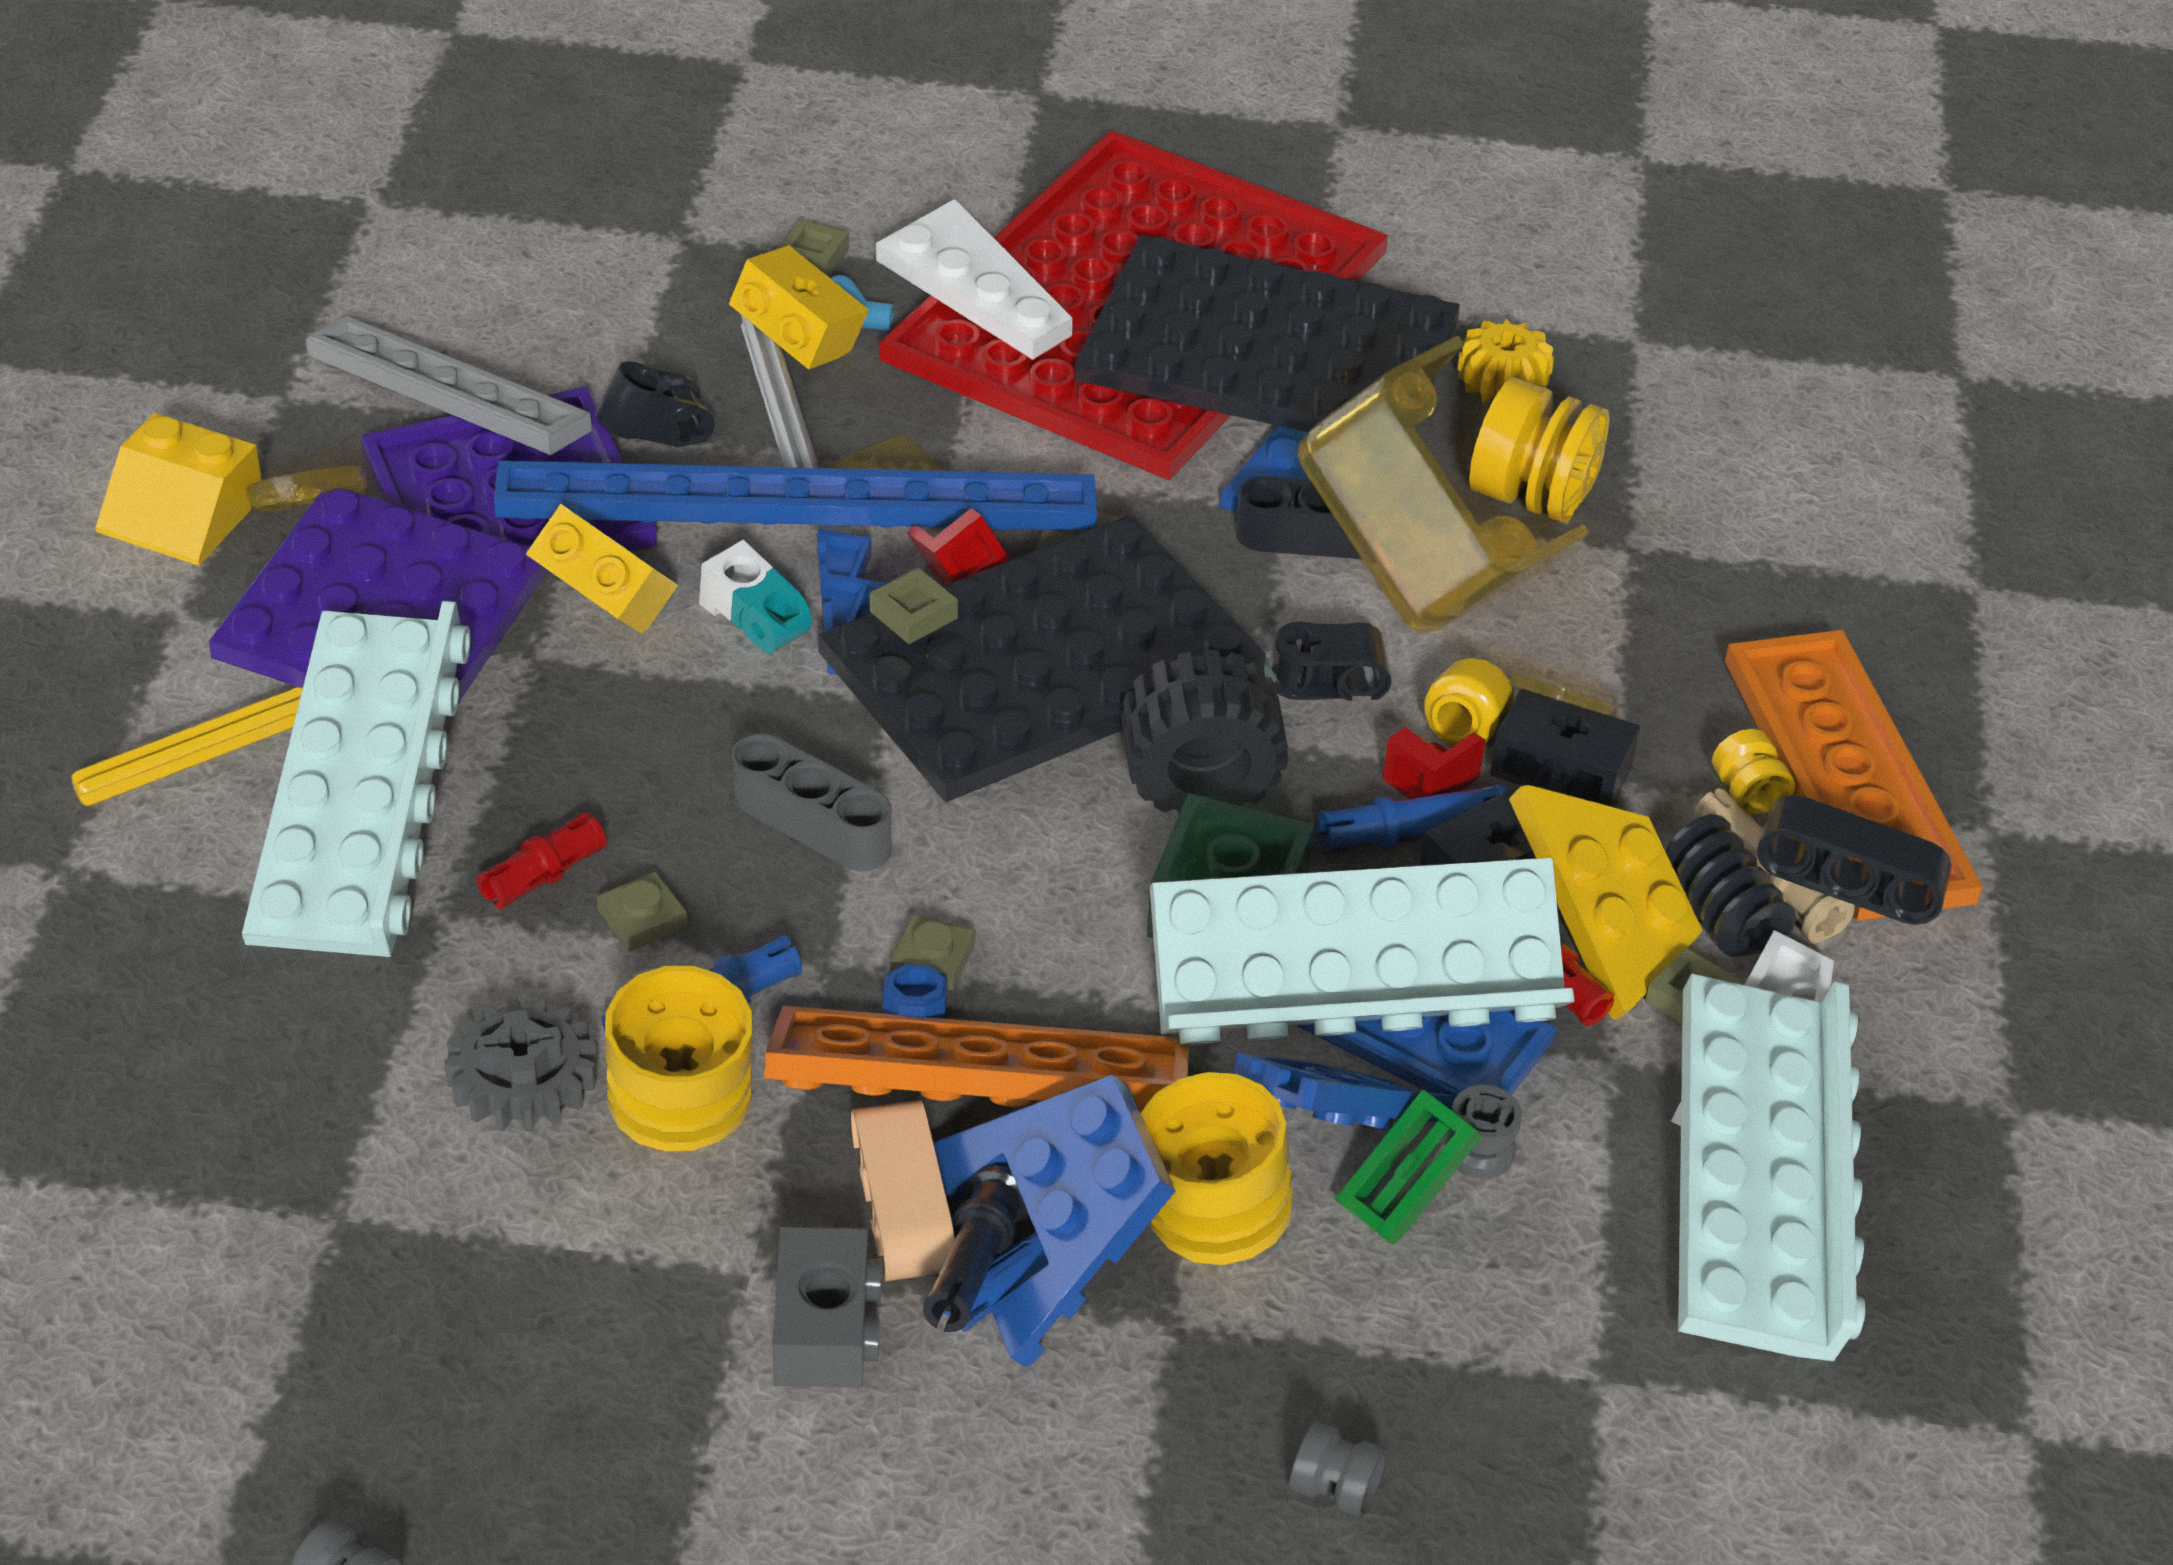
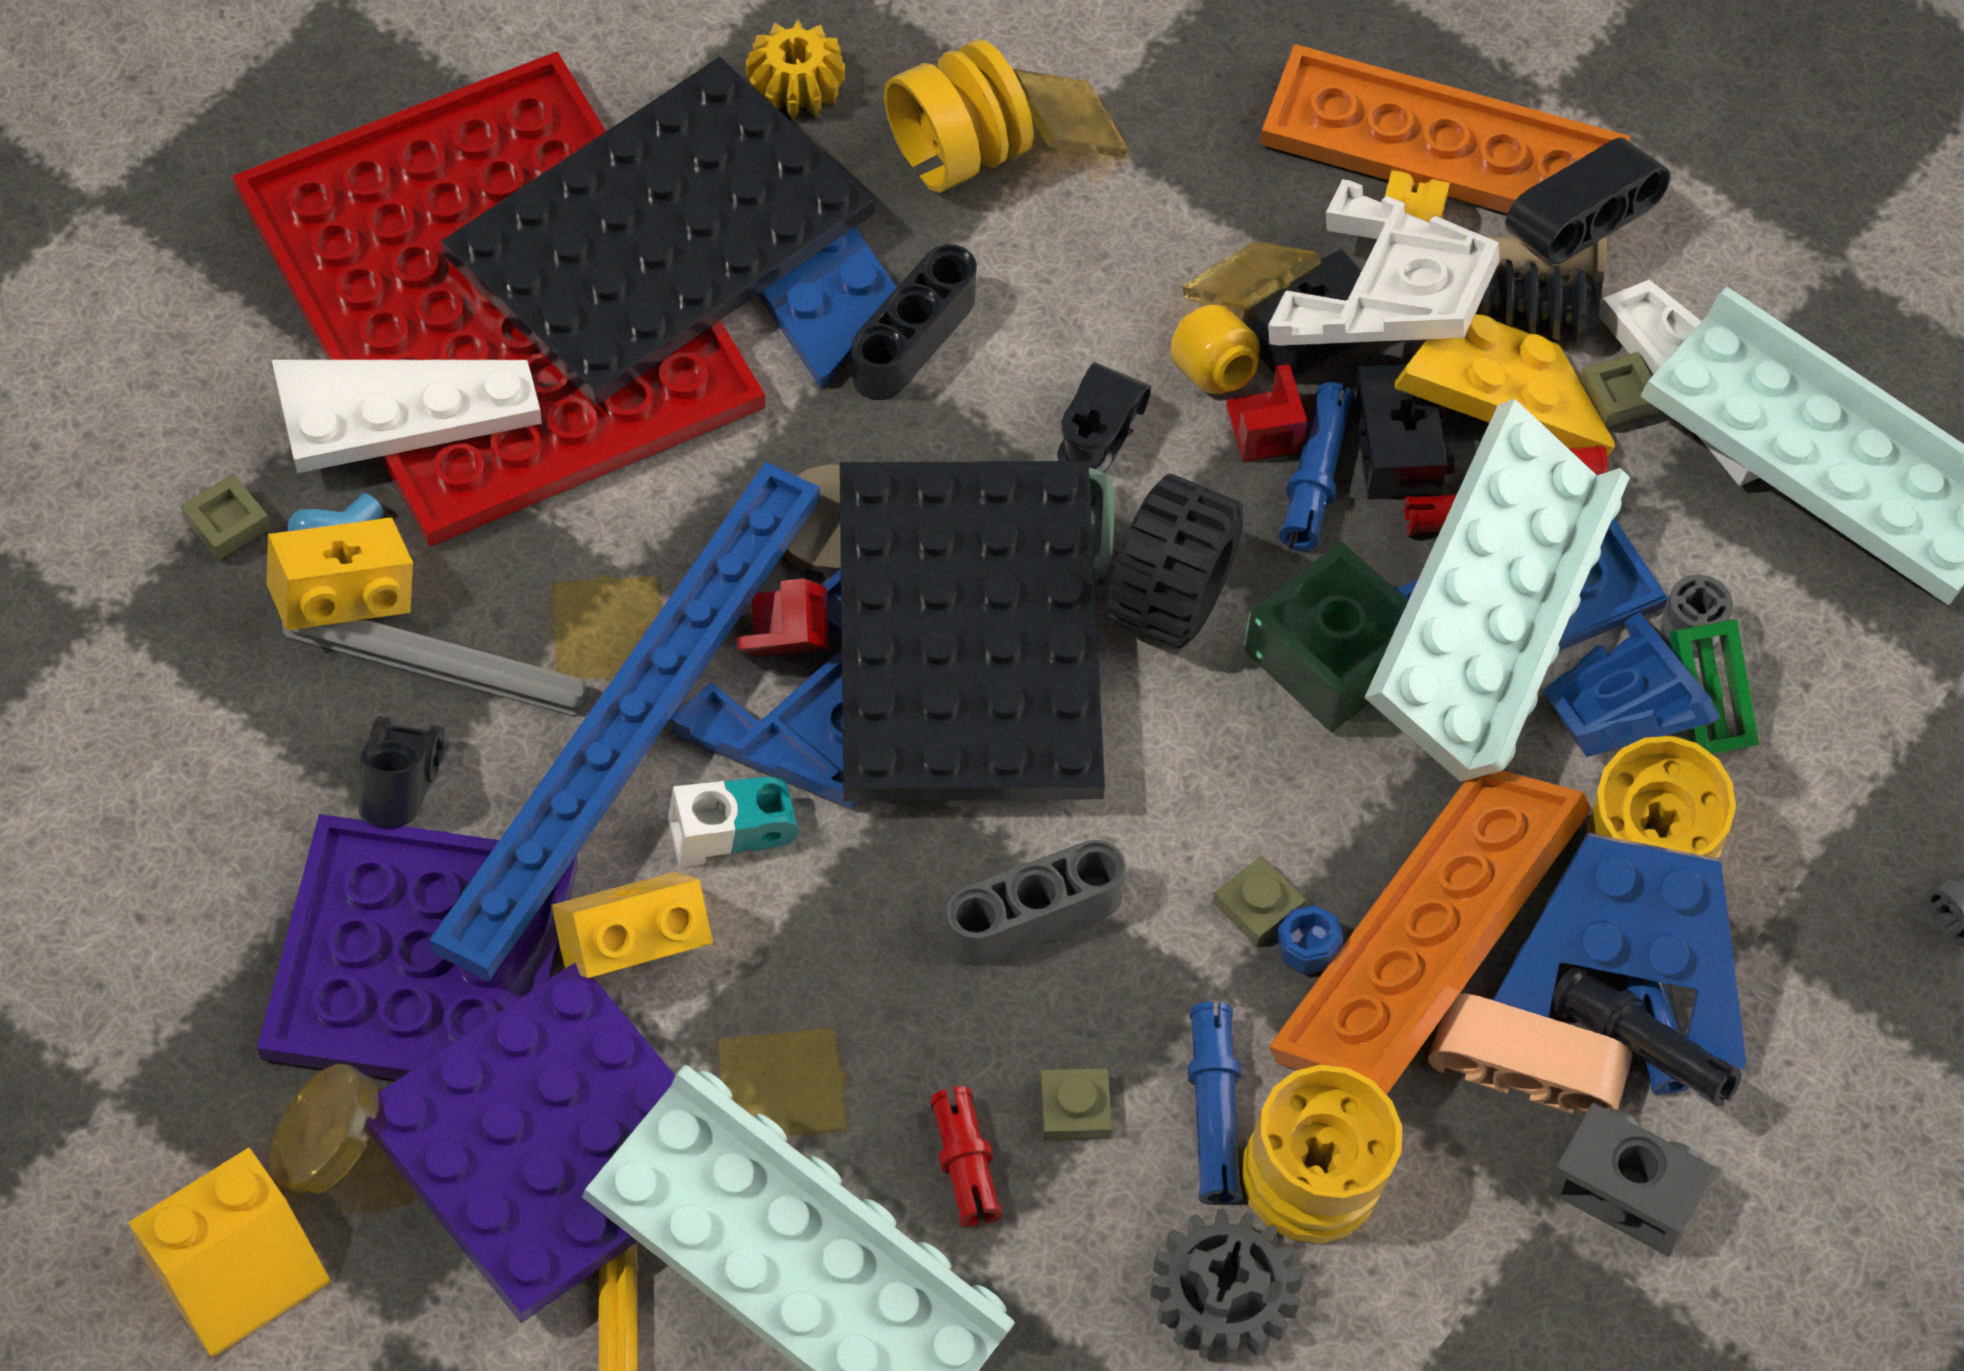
camera: 60 degrees left, 15 degrees up
(449, 385) = (228, 936): light grey tile -> none
(539, 734) = (787, 1079): none -> clear yellow piece
(913, 605) = (892, 693): olive plate -> none
(1405, 509) = (984, 252): clear yellow windscreen -> none
(1619, 767) = (1414, 286): none -> white wing
(1621, 521) = (1070, 114): none -> clear yellow piece

